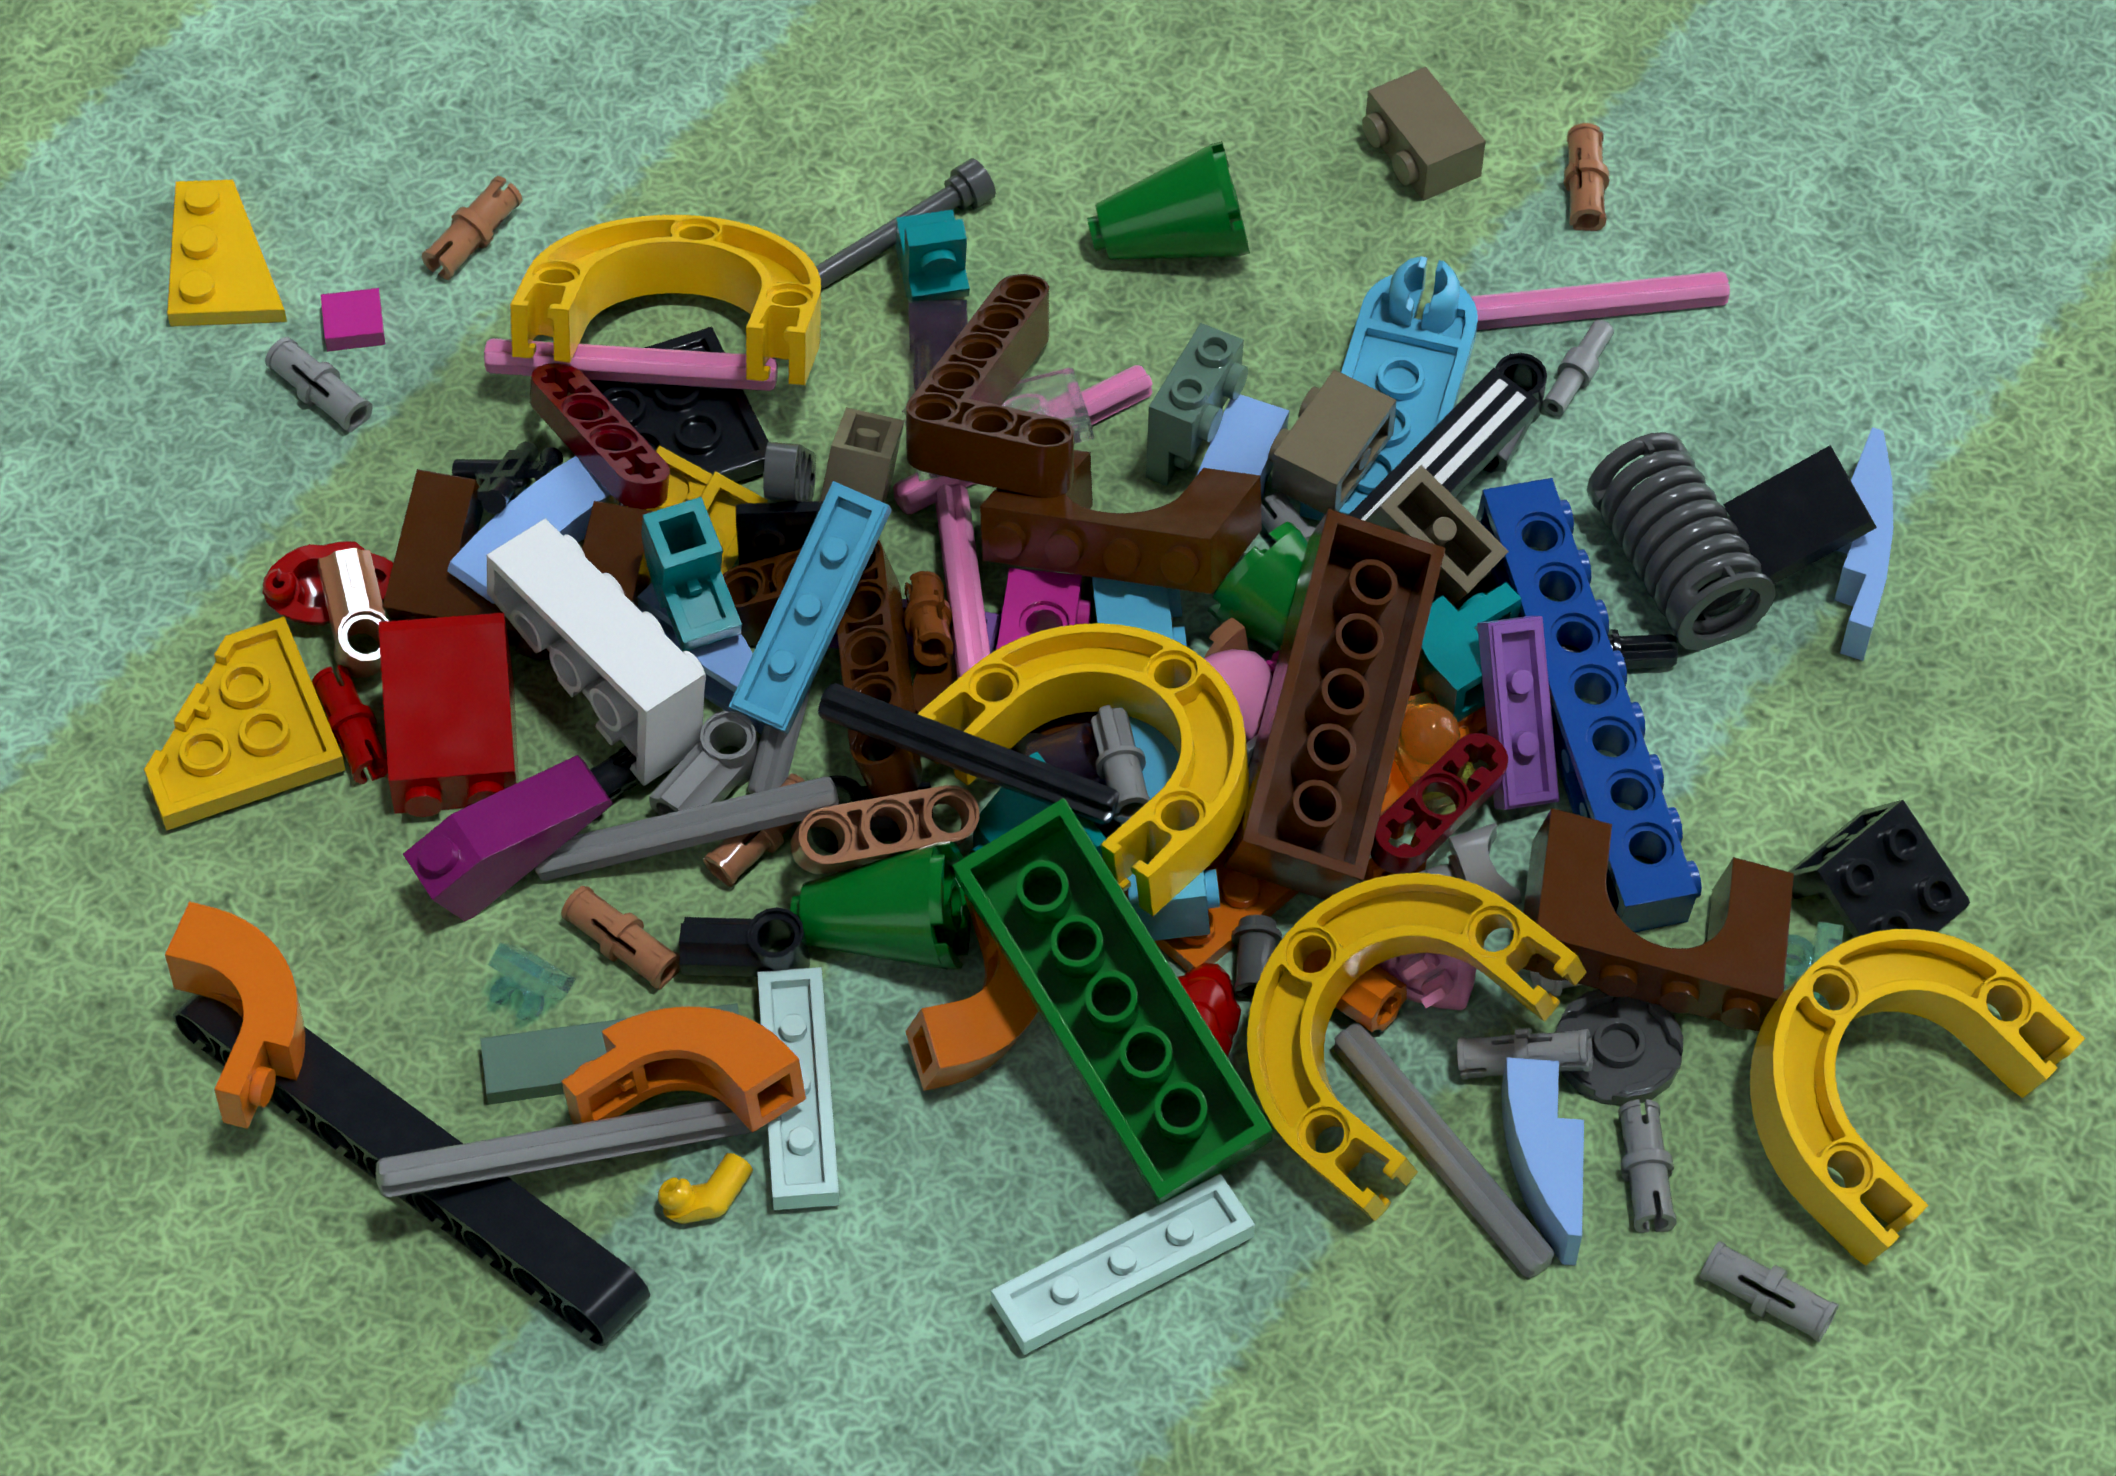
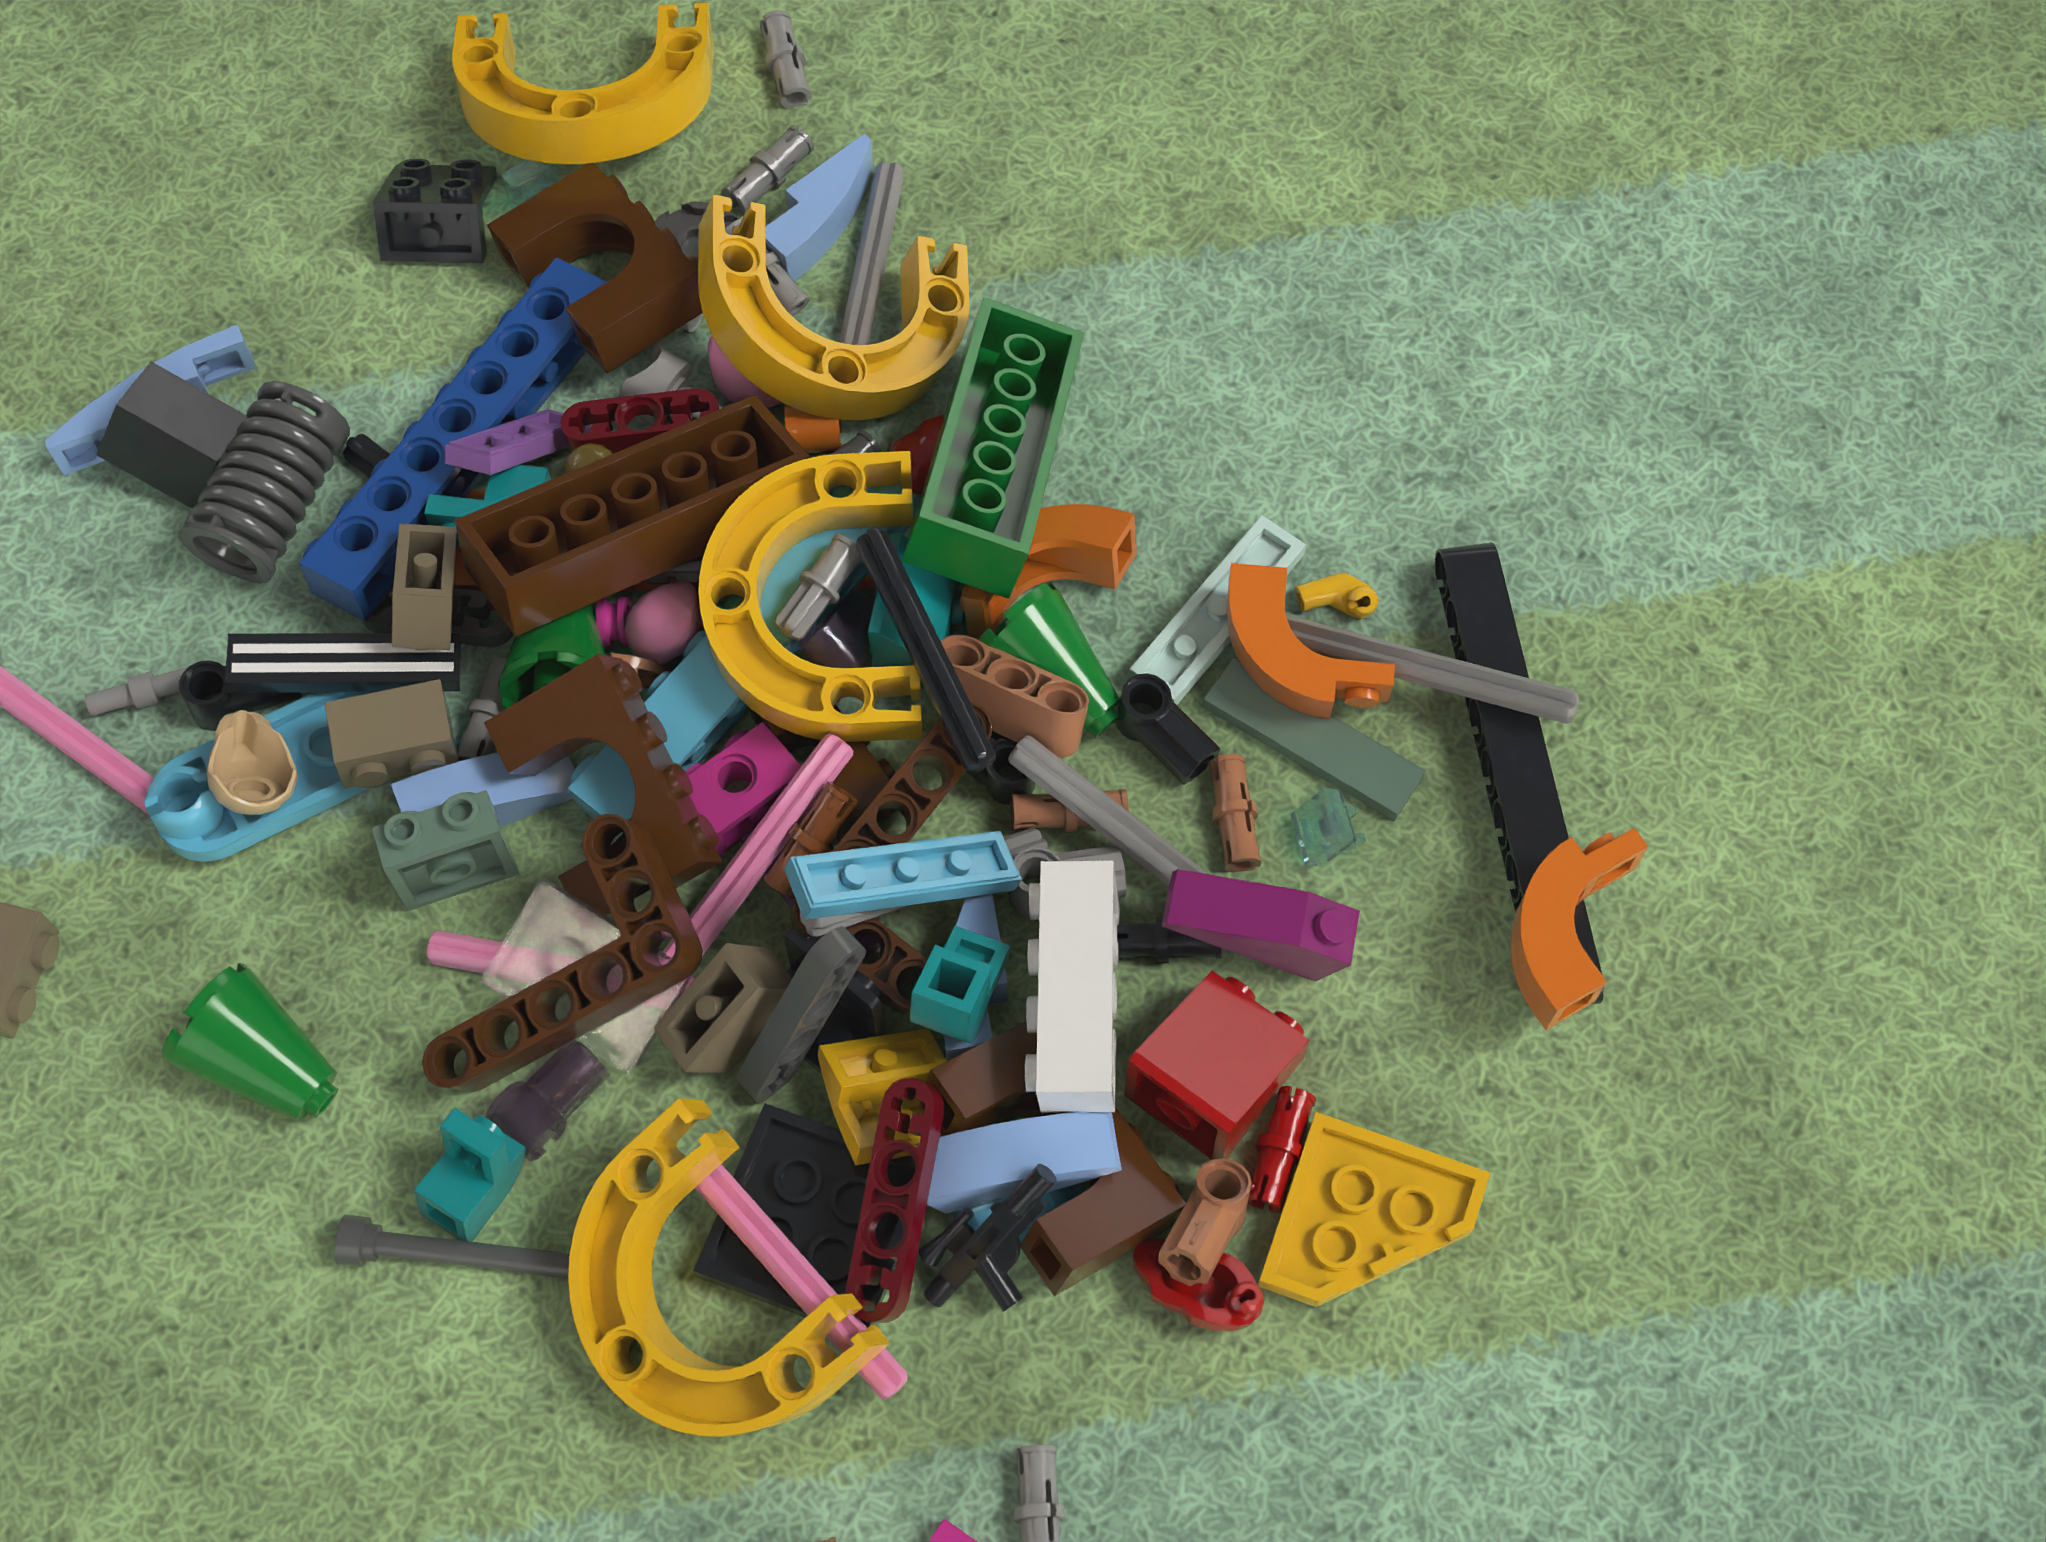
camera: 135 degrees left, 10 degrees up
(1122, 1264) = (1147, 350): light aqua plate -> none
(1400, 331) = (250, 765): none -> tan hair

